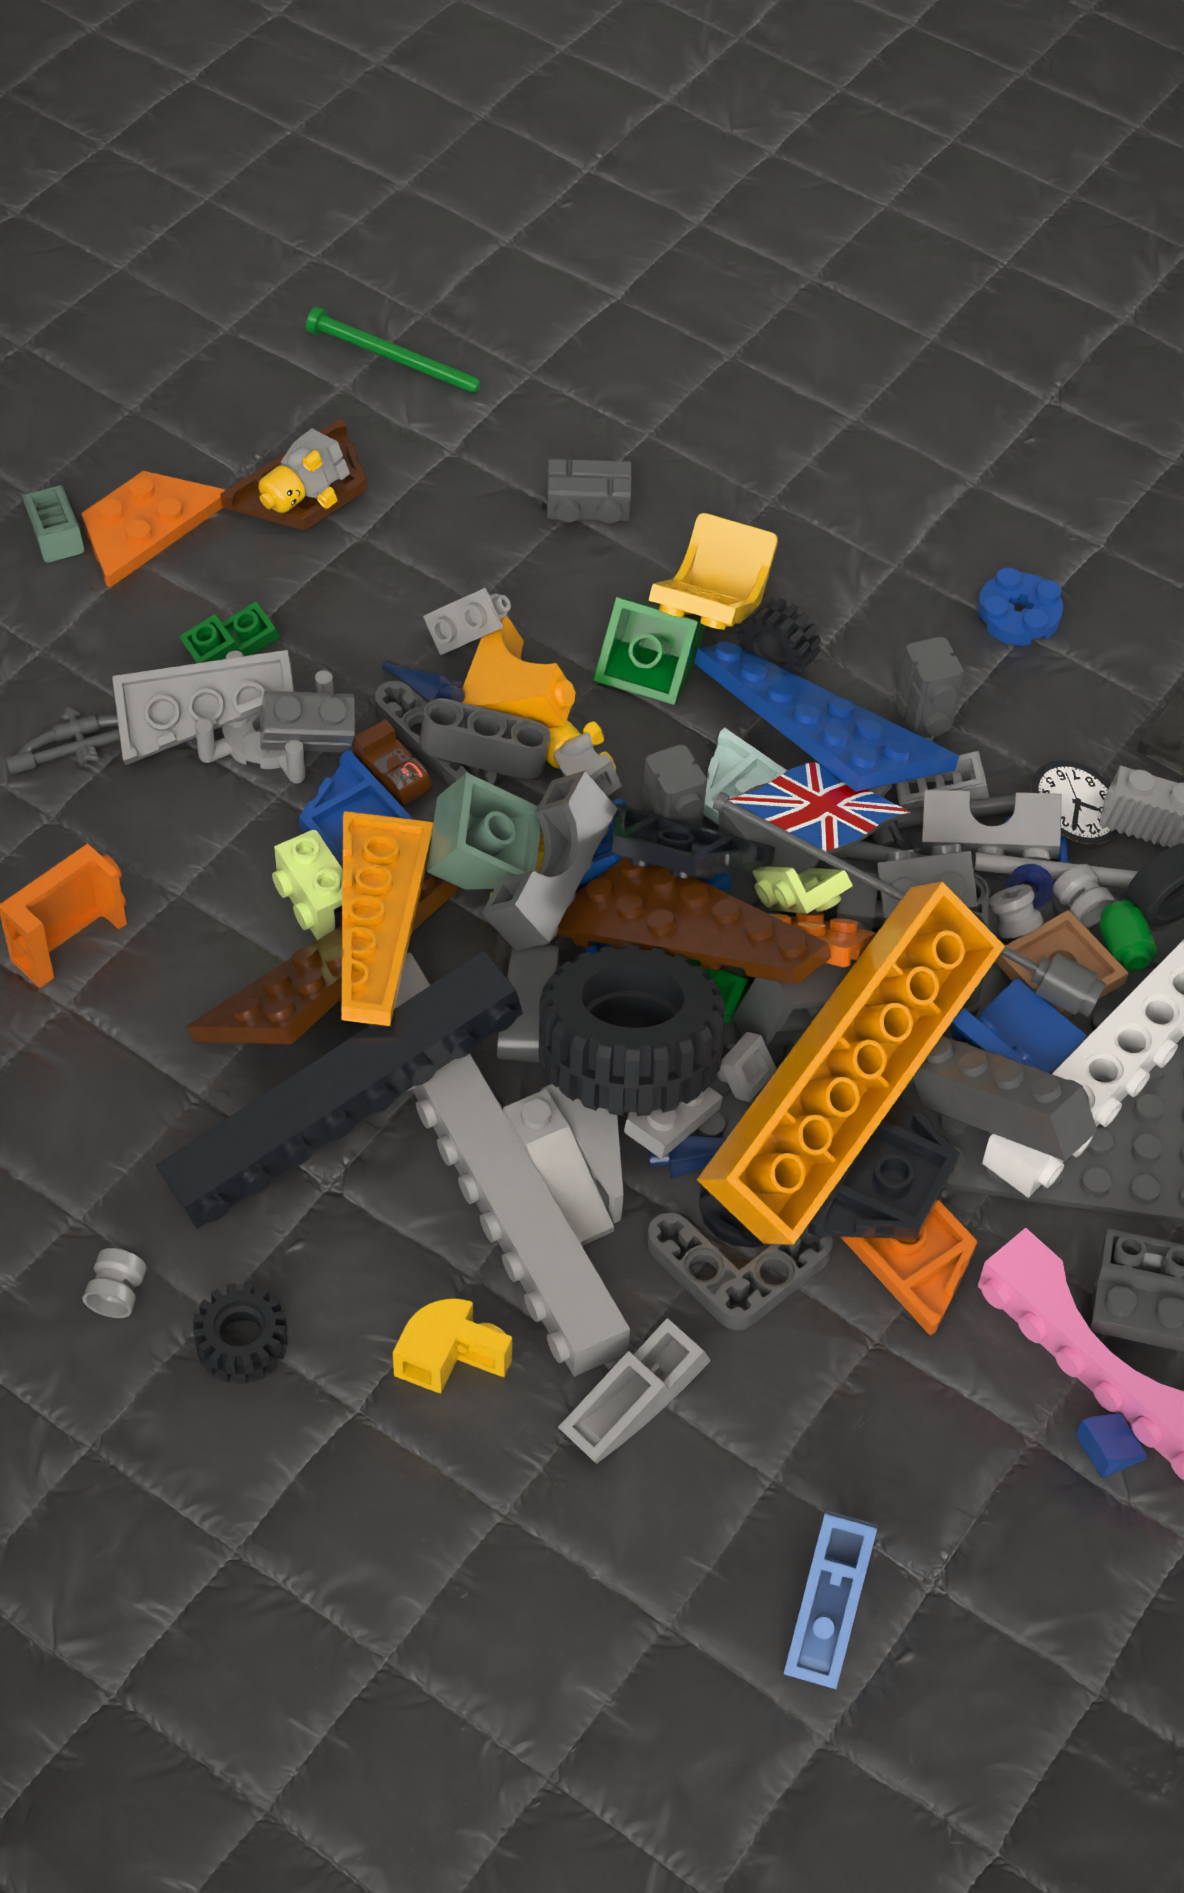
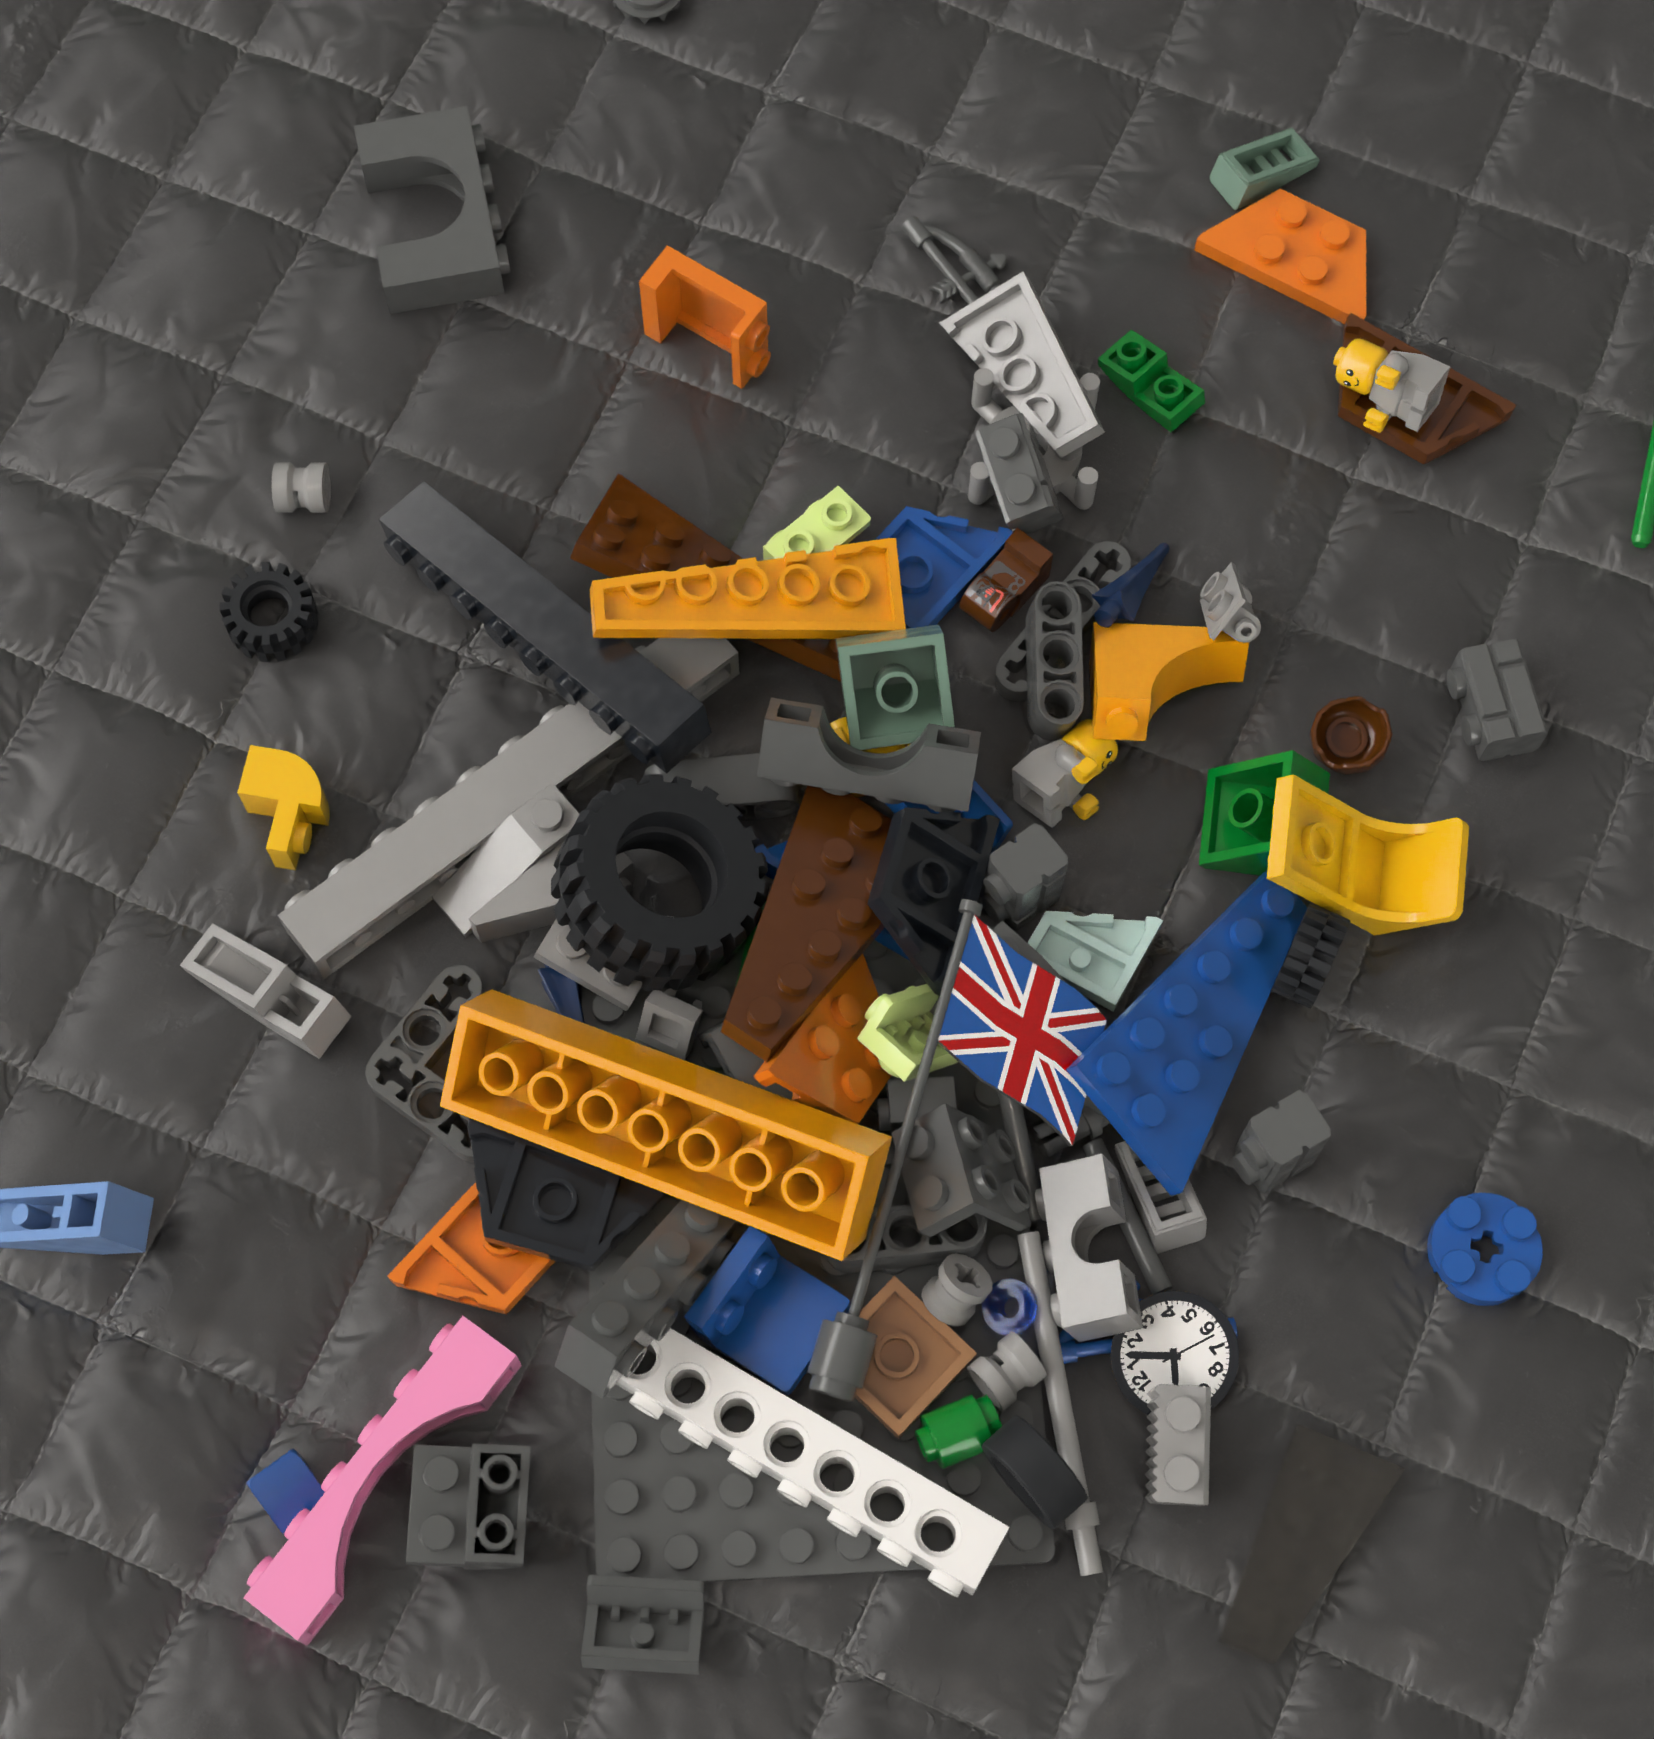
camera: 80 degrees right, 15 degrees up
(597, 577) = (1350, 735): none -> reddish brown hair

